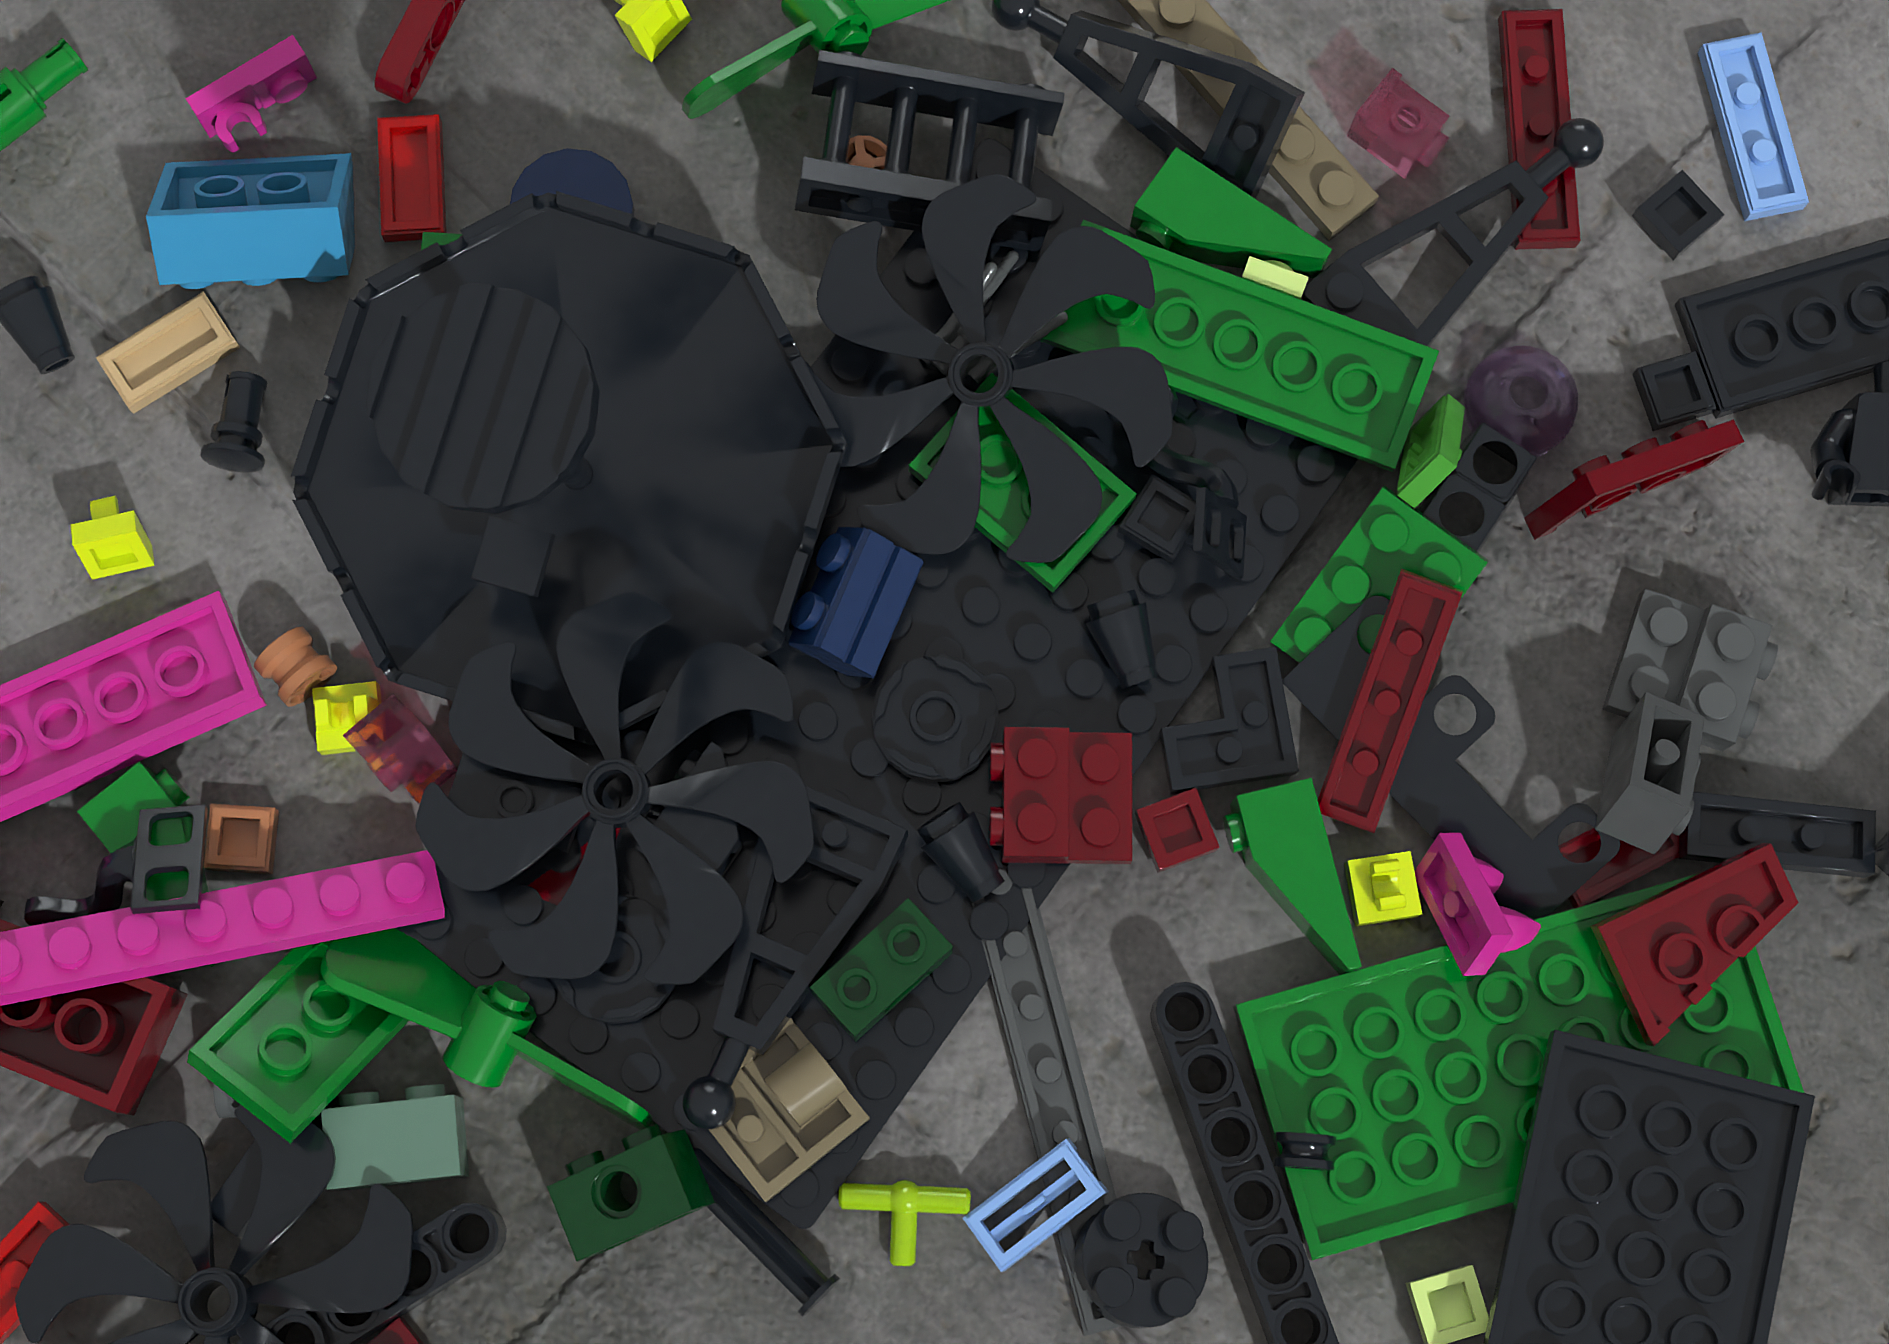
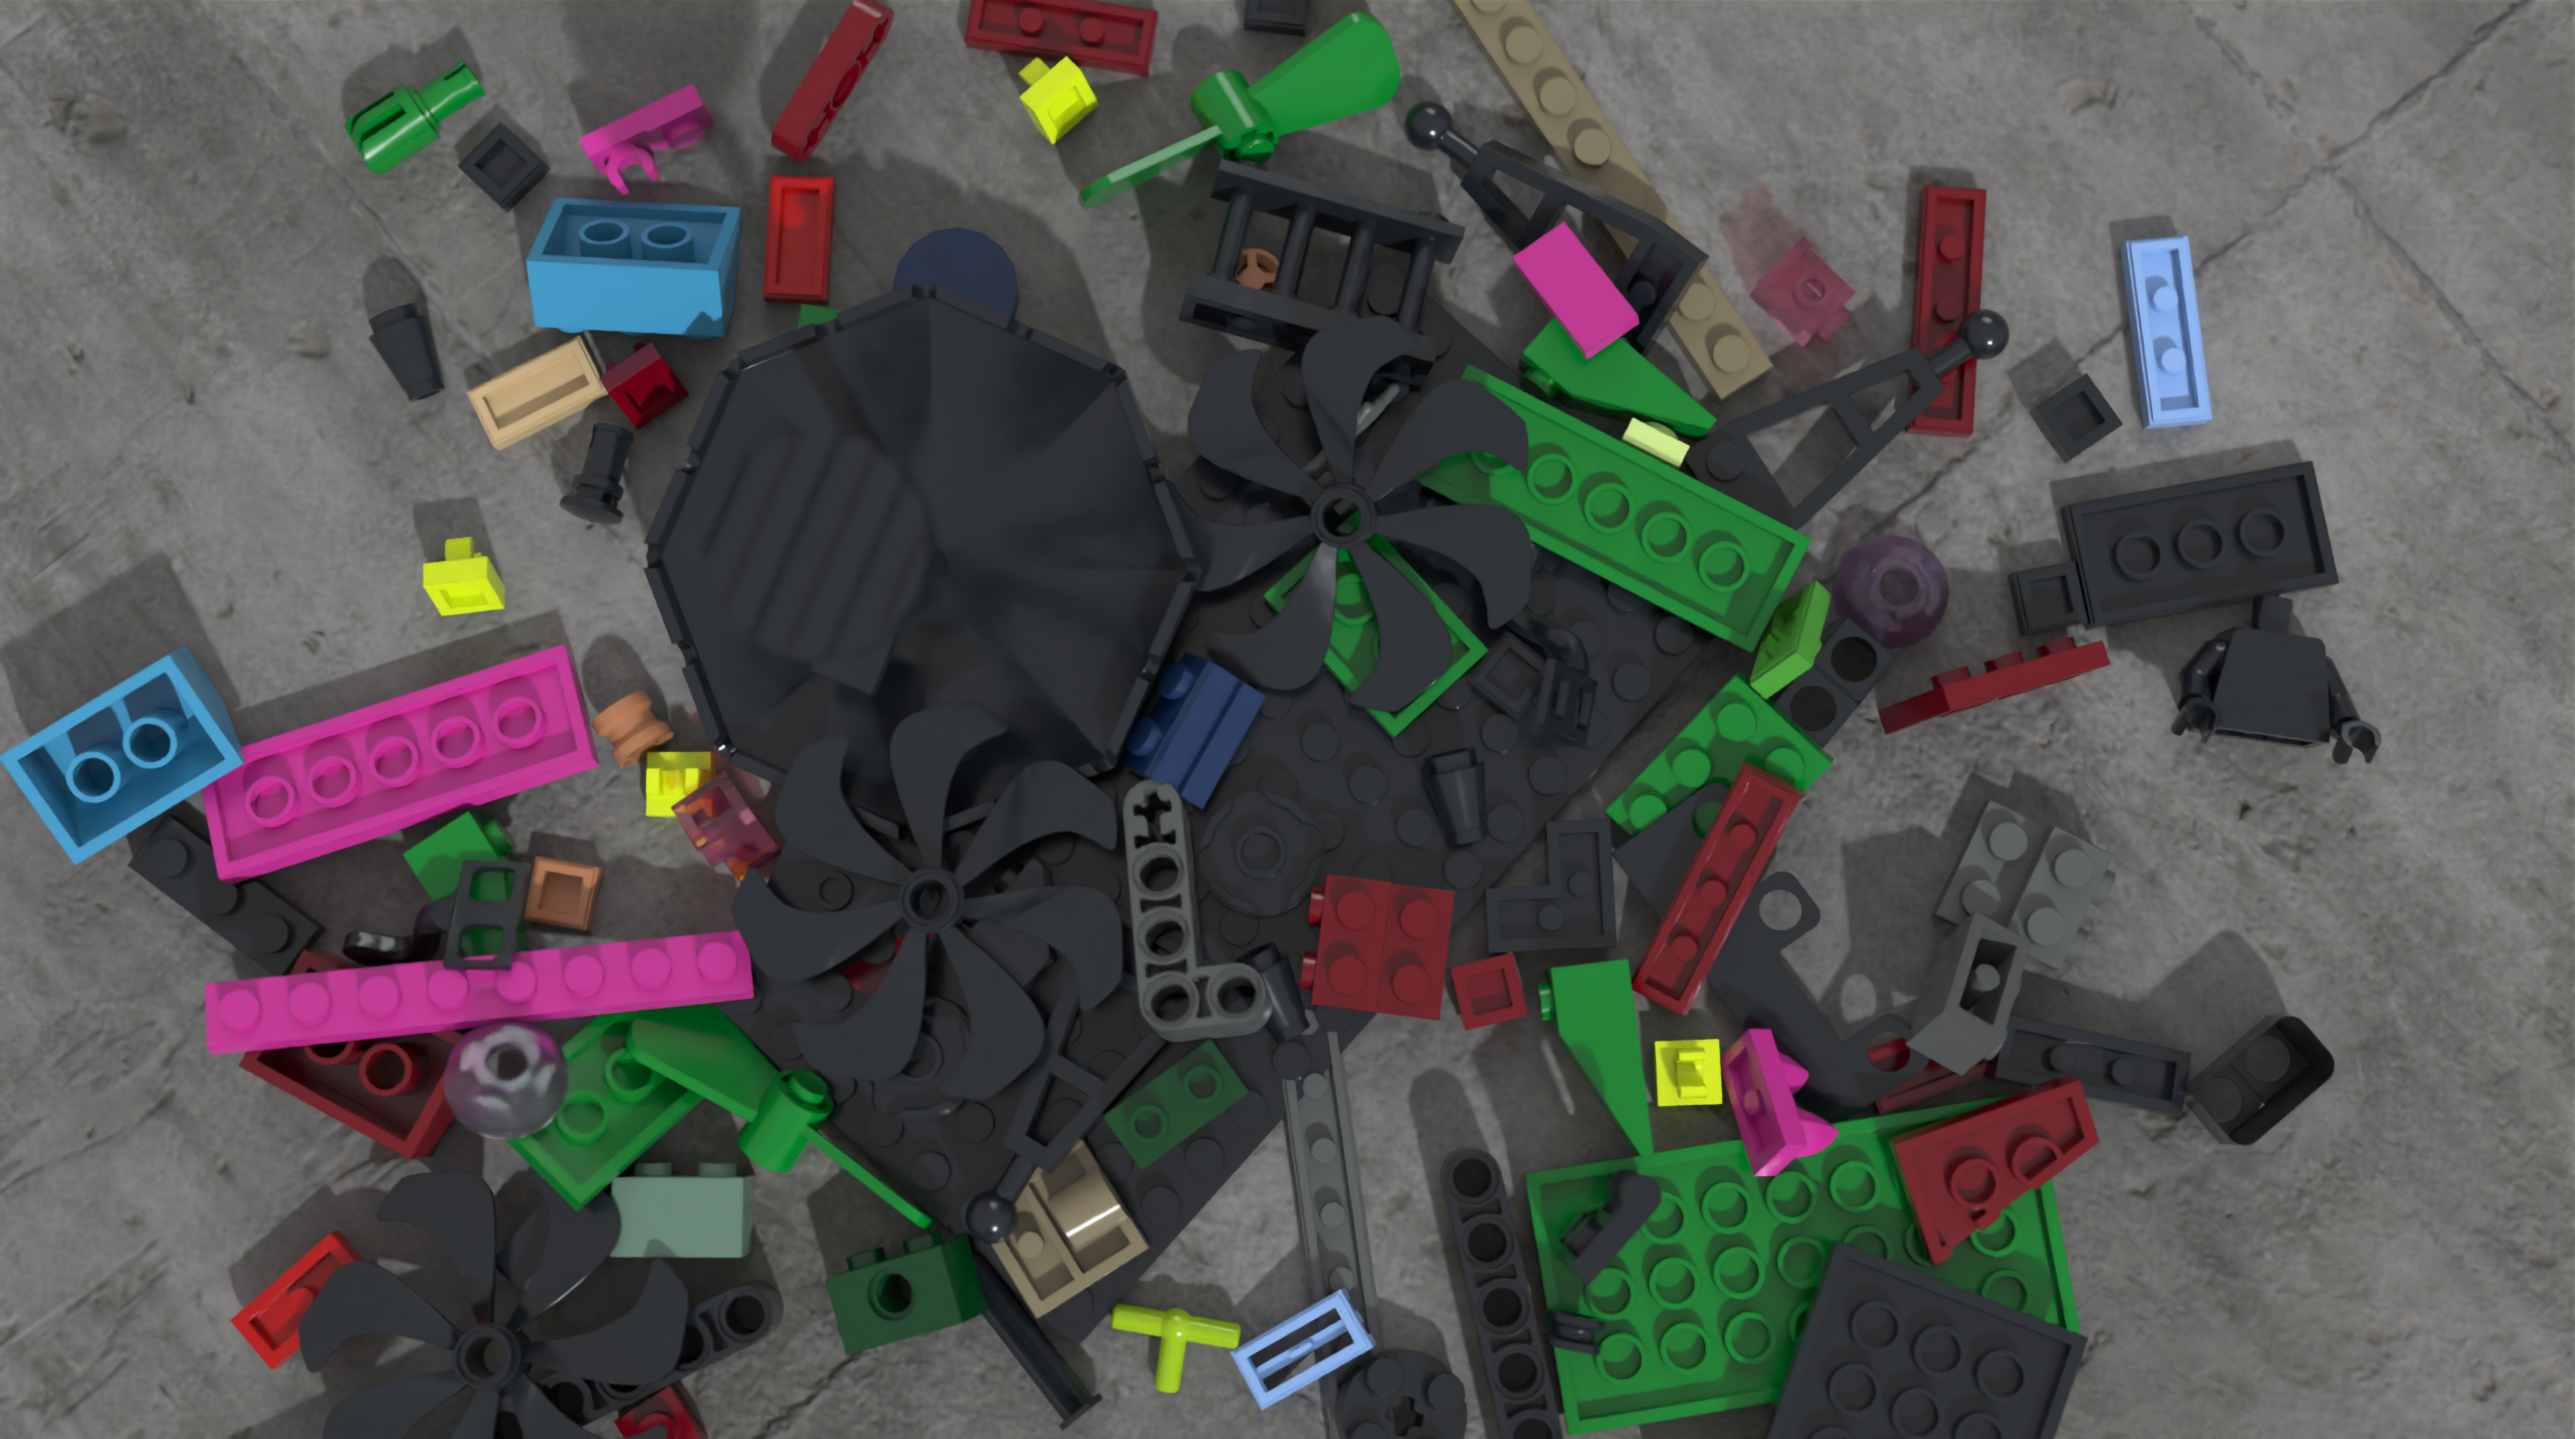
camera: 10 degrees right, 5 degrees up
(112, 139) = (504, 167): none -> black tile
(205, 1041) = (506, 1106): none -> piece
(272, 331) = (643, 385): none -> dark red tile
(859, 777) = (1178, 910): none -> dark grey beam
(1179, 139) = (1575, 290): none -> dark pink tile
(1317, 1049) = (1596, 1239): none -> black plate

